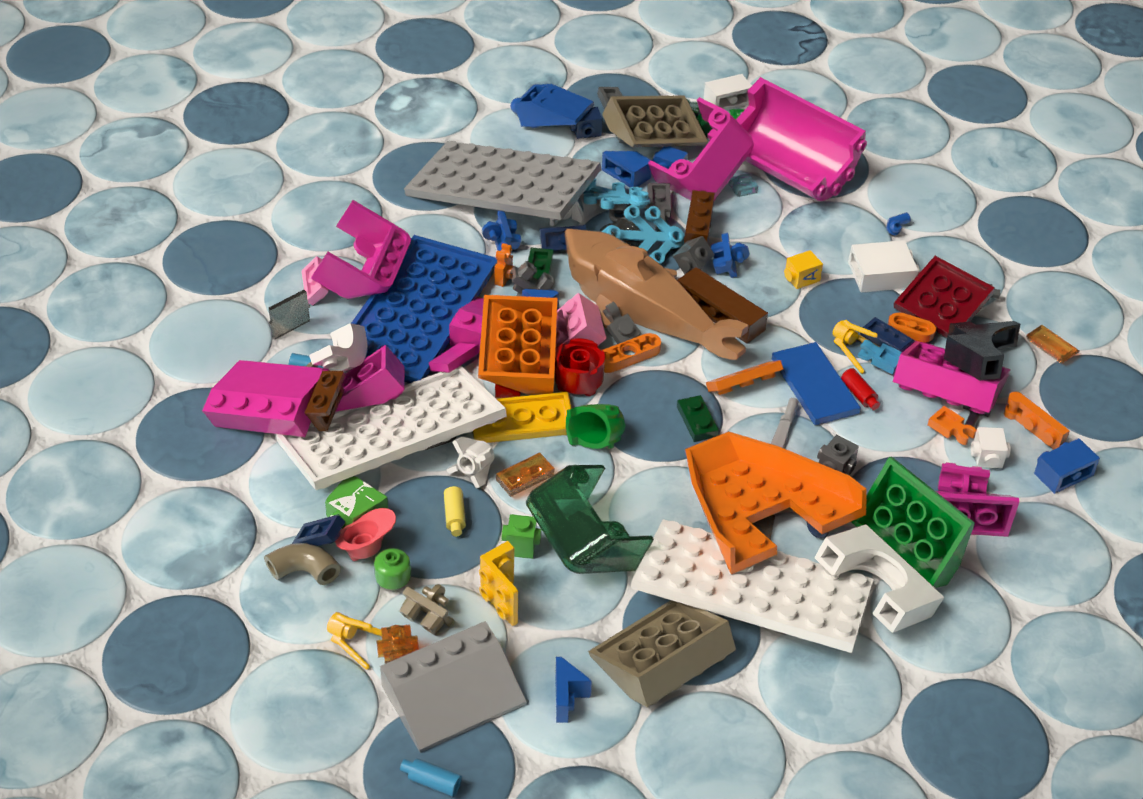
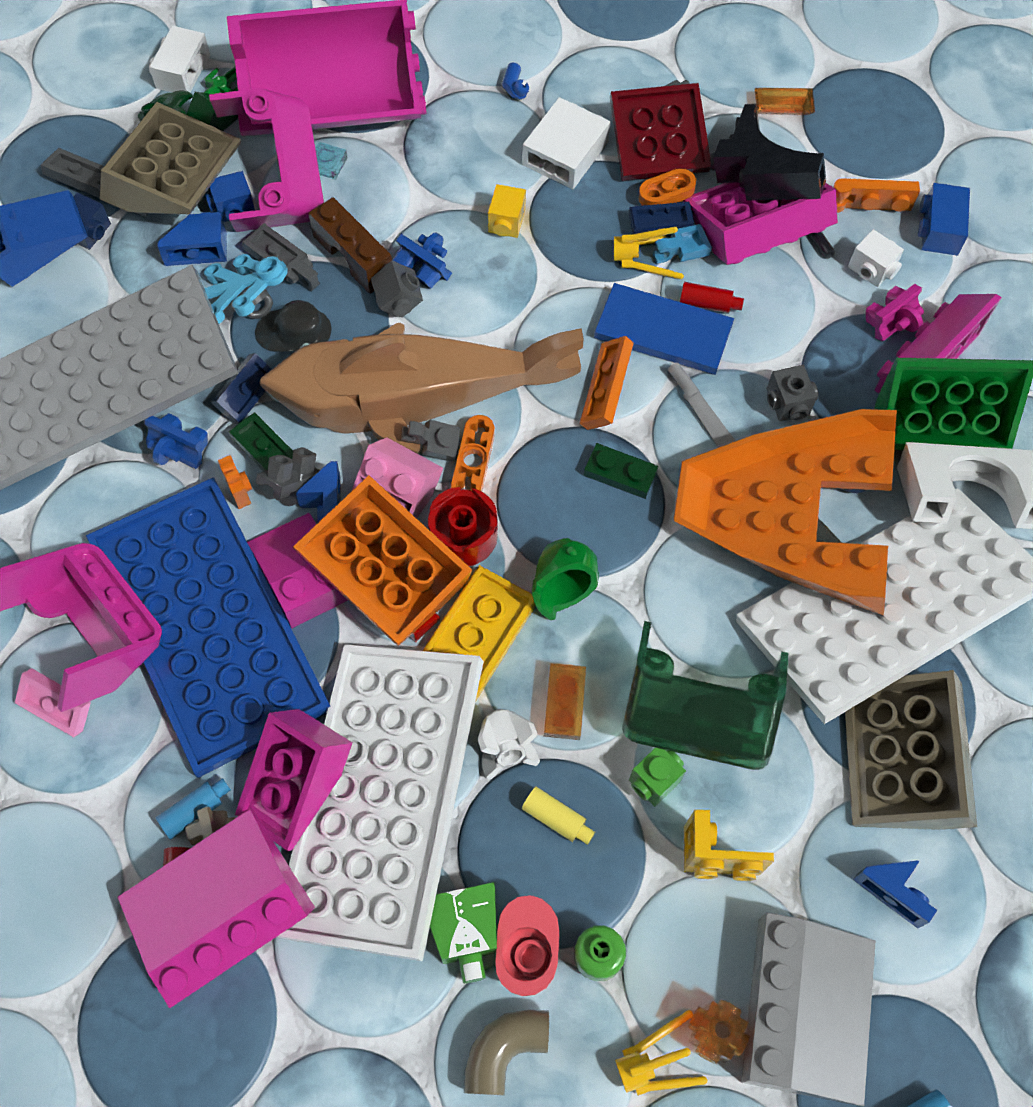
camera: 50 degrees left, 20 degrees up
(289, 314) = (89, 777): clear smoke piece -> none
(320, 531) = (482, 1001): dark blue plate -> none
(325, 399) = (298, 846): reddish brown bracket -> none
(347, 350) = (233, 763): white arch -> none
(436, 614) = (696, 950): dark tan hips -> none
(454, 357) = (327, 642): dark pink tile -> none
(647, 233) = (346, 287): medium azure plant -> none
(724, 303) = (491, 320): reddish brown brick -> none
(950, 423) = (816, 265): orange plate -> none

